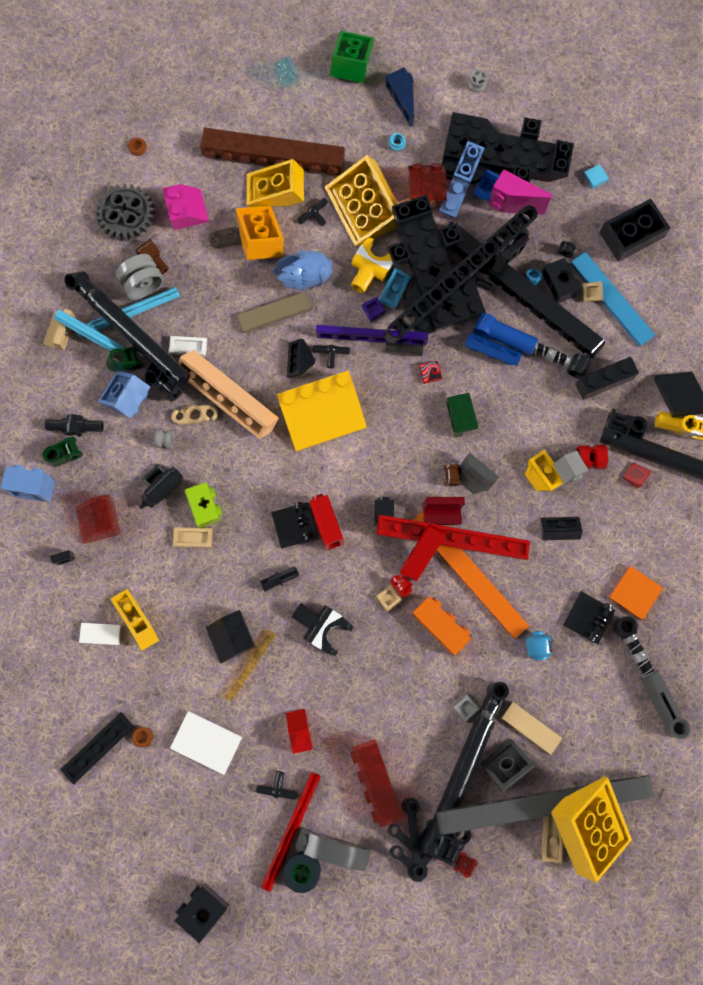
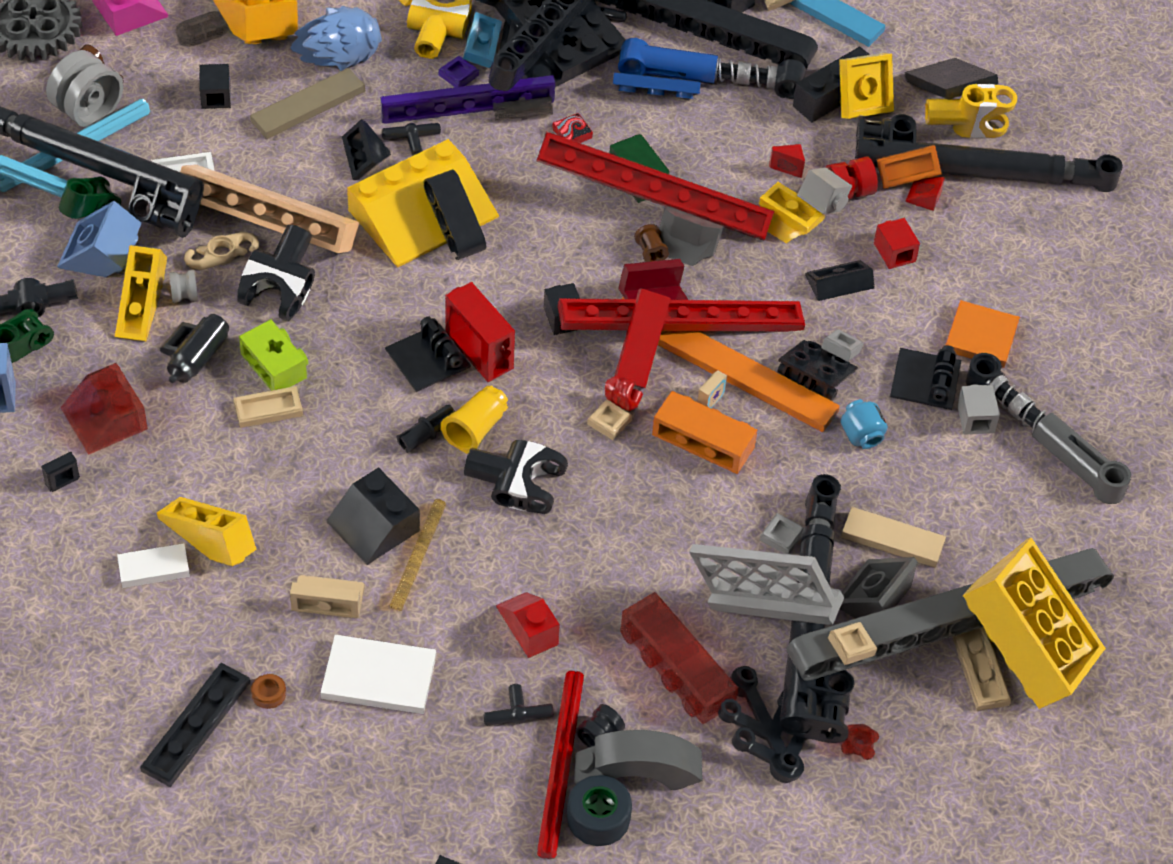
camera: 20 degrees left, 25 degrees down
(138, 437) = (140, 292): none -> yellow slope
(192, 680) = (327, 596): none -> tan panel
(221, 287) = (214, 86): none -> black brick
(222, 445) = (280, 272): none -> black connector
(309, 581) = (474, 419): none -> yellow plant
(318, 817) = (603, 721): none -> black wheel
(337, 427) = (454, 214): none -> black beam
(442, 763) = (773, 598): none -> light grey fence
(454, 596) = (712, 389): none -> tan tile
(465, 437) = (654, 186): none -> red tile
(474, 826) = (852, 643): none -> tan tile
(525, 593) = (822, 367): none -> black hinge
(545, 581) = (842, 345): none -> light grey tile
(557, 430) = (788, 159): none -> red slope
(604, 512) = (896, 243): none -> red brick
(613, 651) = (978, 409): none -> light grey brick
(624, 389) = (866, 85): none -> yellow plate
(631, 456) = (909, 166): none -> orange tile

